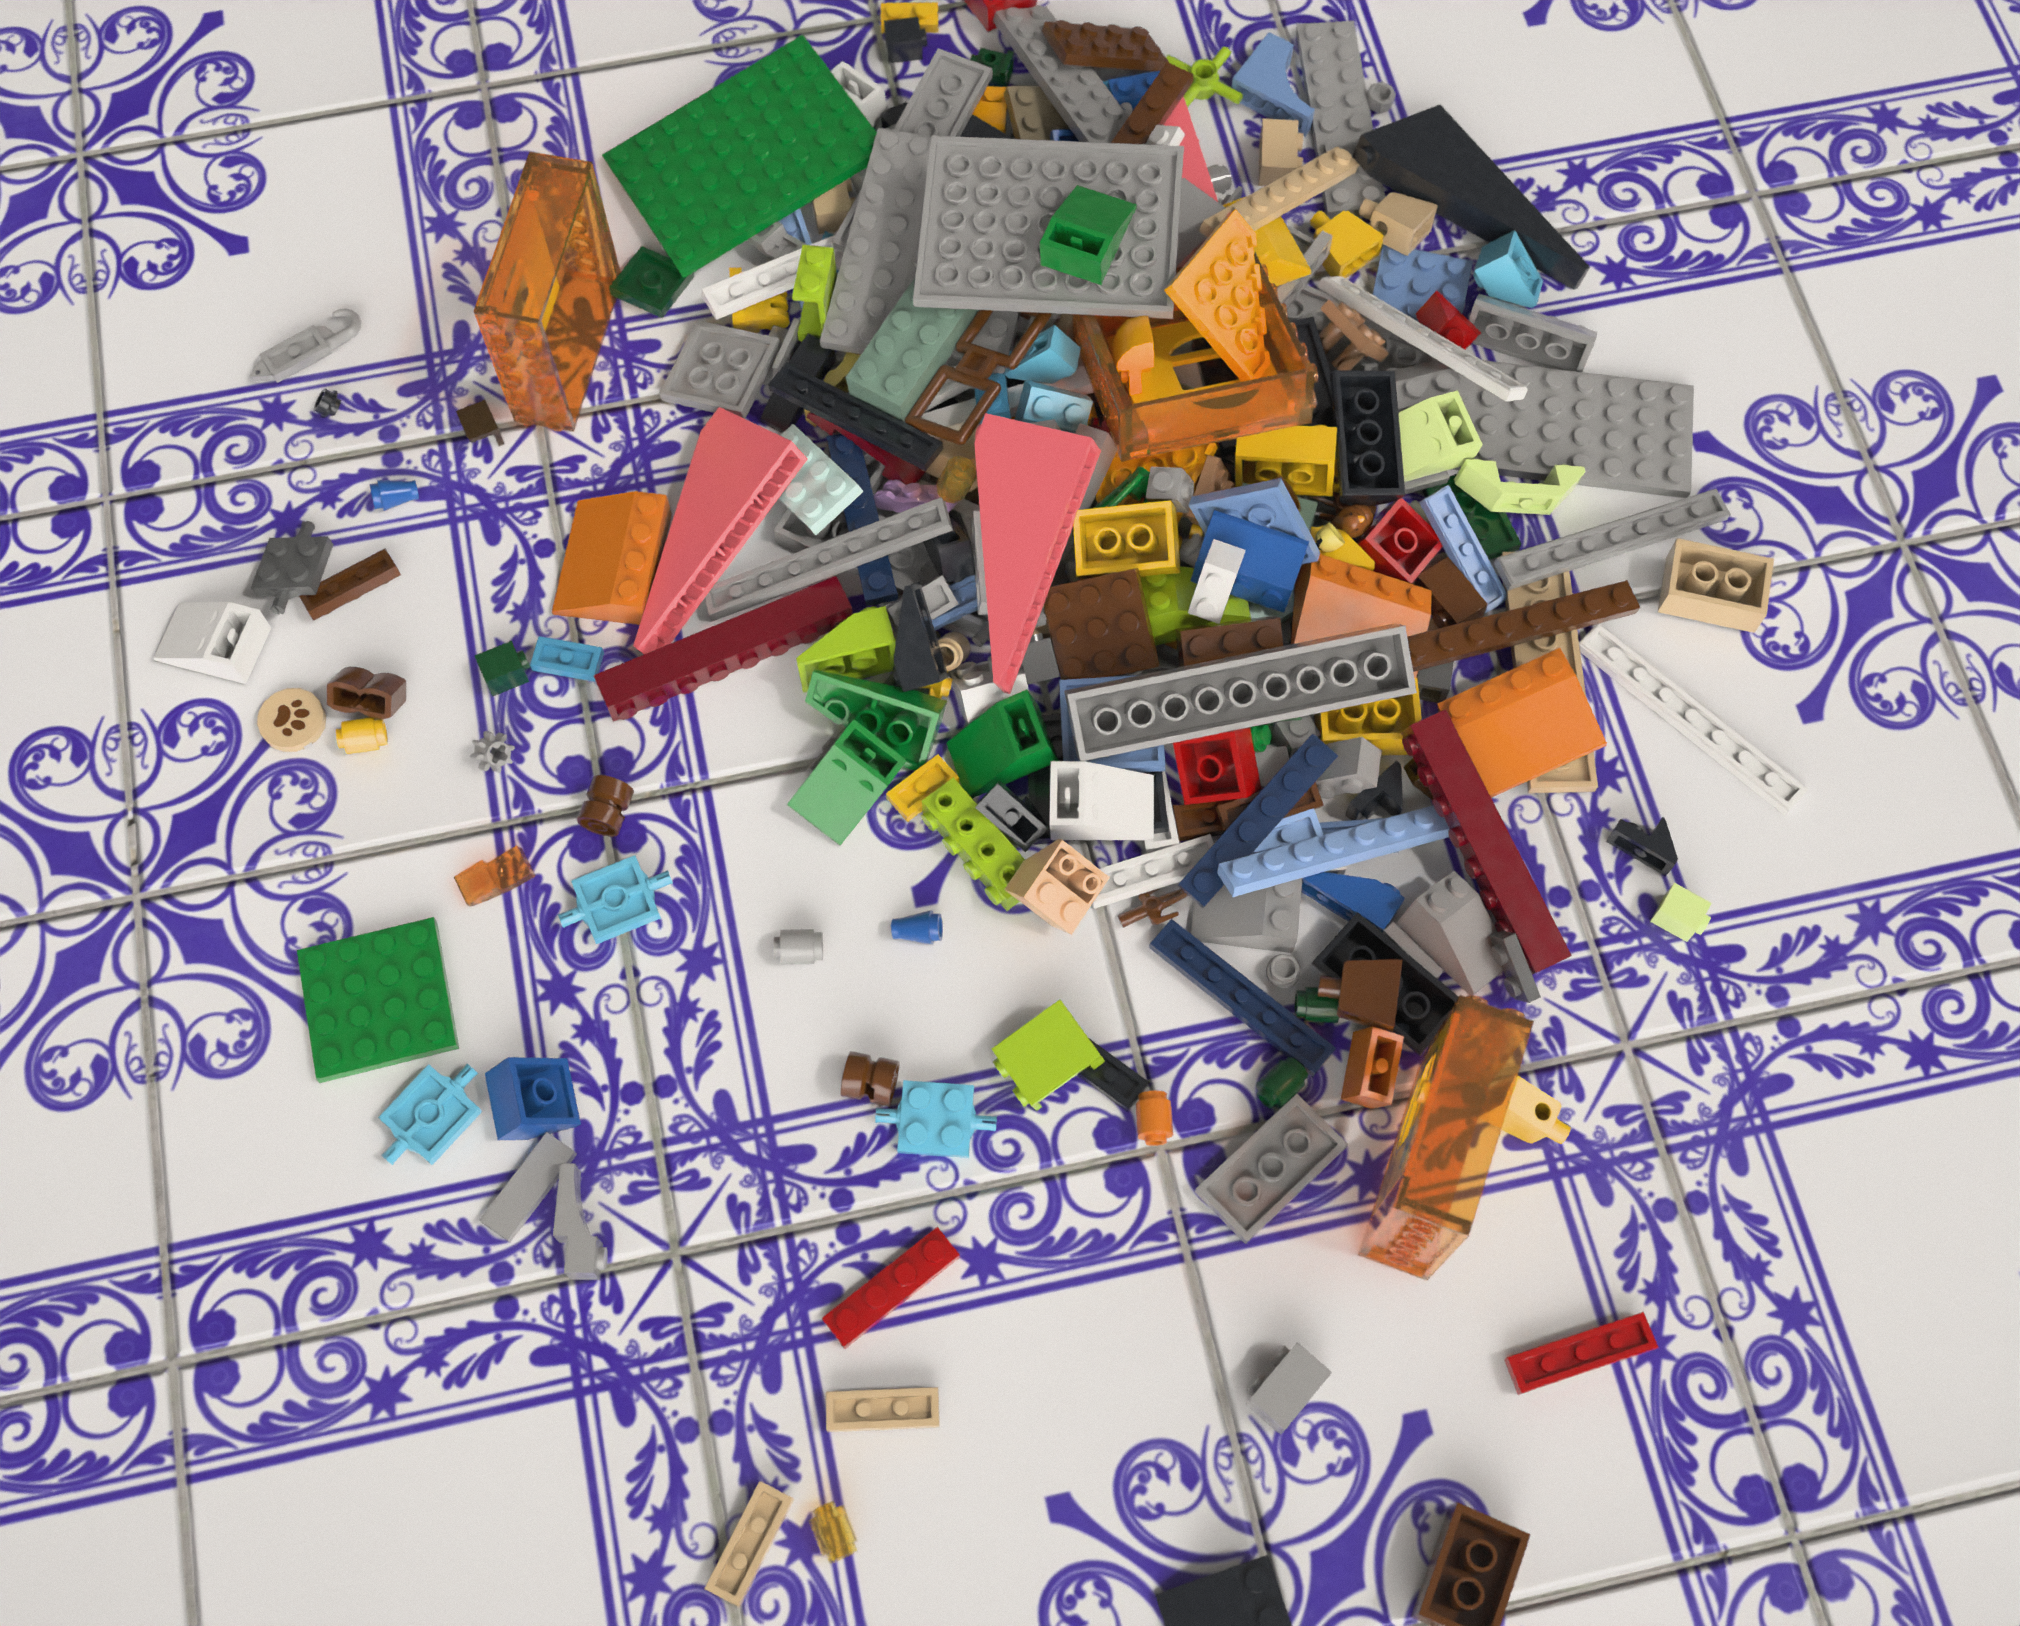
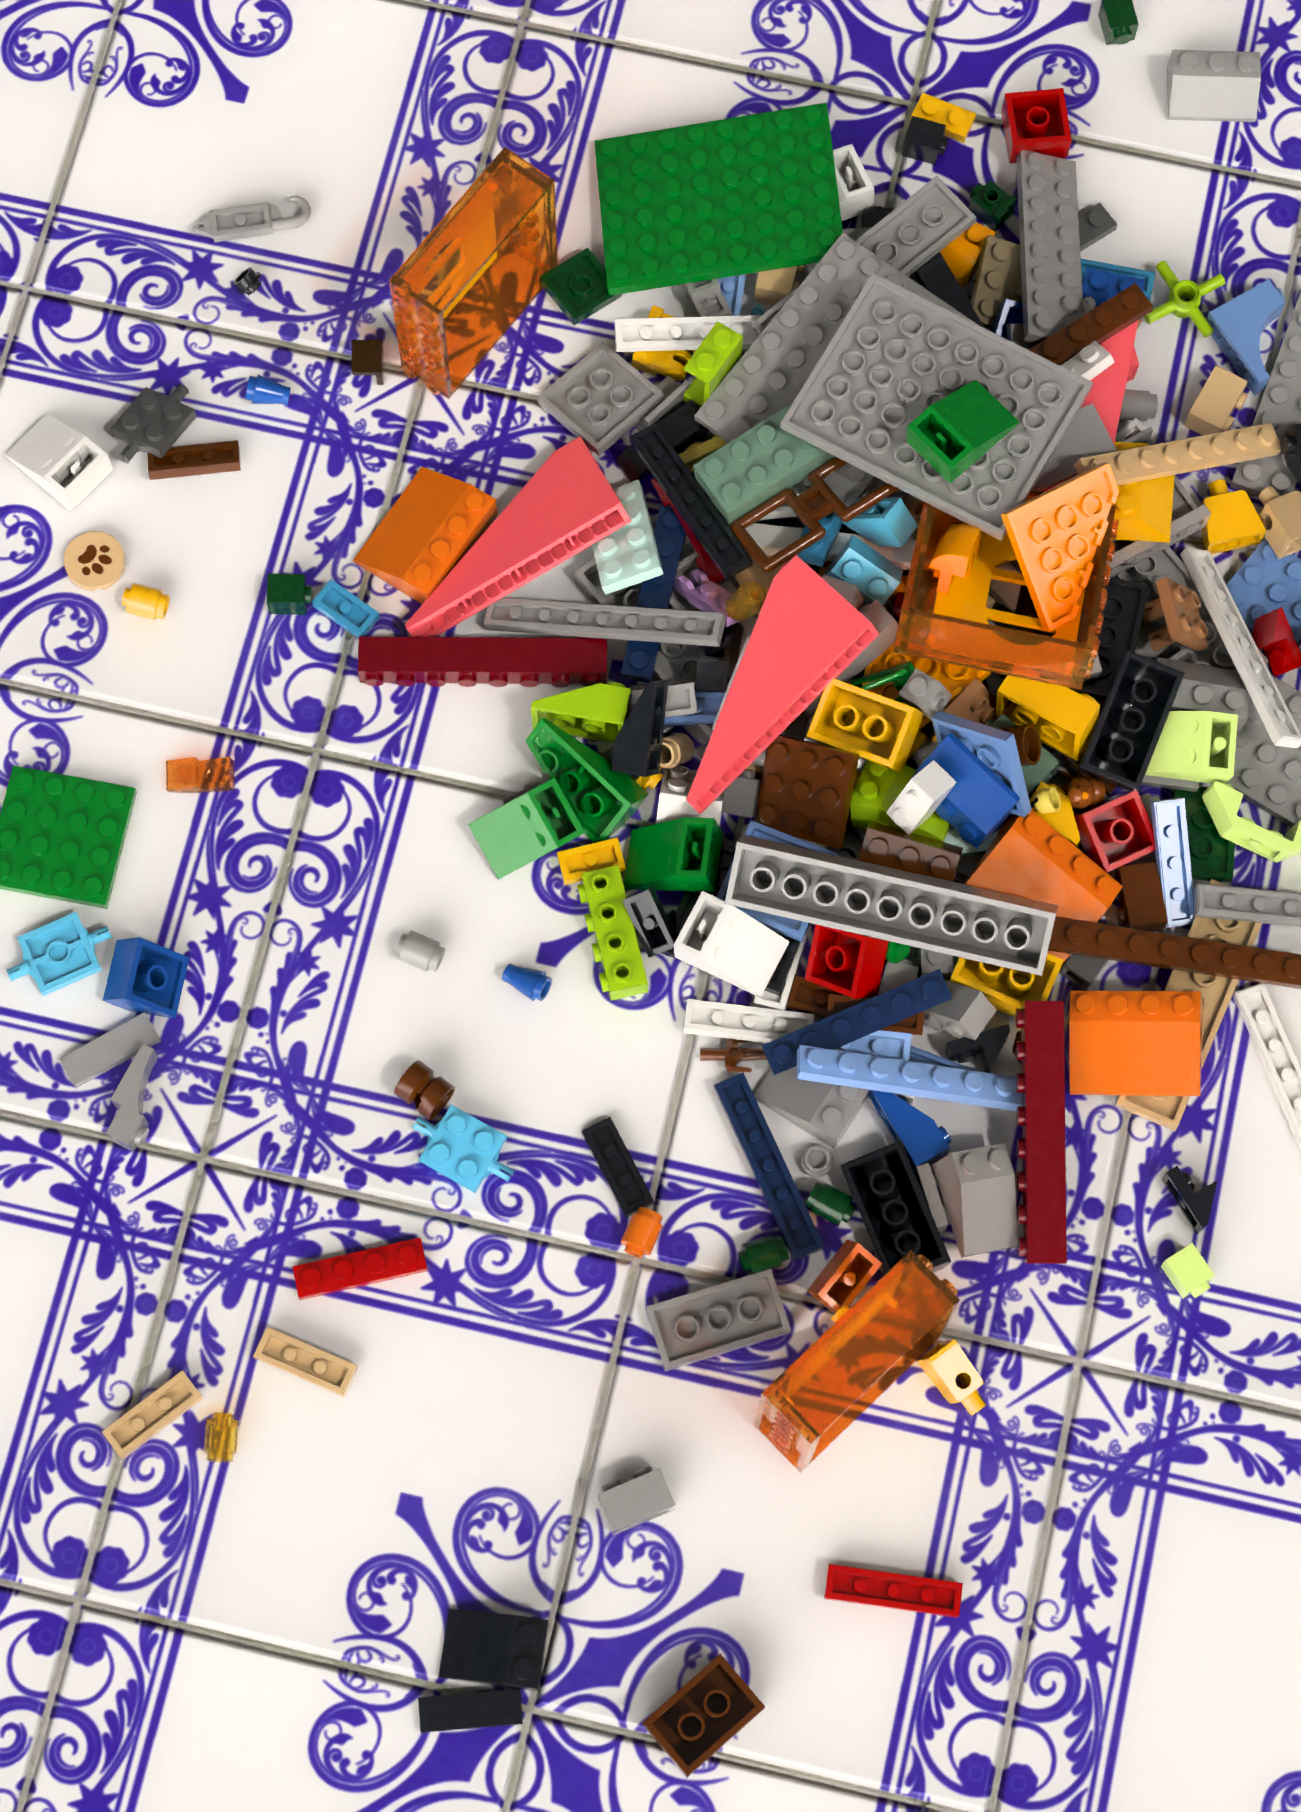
camera: 25 degrees right, 5 degrees up
(370, 693) = (165, 566): reddish brown brick -> none
(501, 755) = (247, 674): light grey gear -> none
(606, 801) = (316, 757): reddish brown wheel -> none
(615, 899) = (289, 841): medium azure plate -> none
(1045, 1054) = (578, 1137): lime panel -> none
(1057, 885) = (657, 1000): light nougat slope -> none
(1104, 46) = (1103, 230): reddish brown plate -> none
(1365, 992) = (868, 1211): reddish brown torso -> none
(1511, 958) = (1011, 1235): dark grey plate -> none

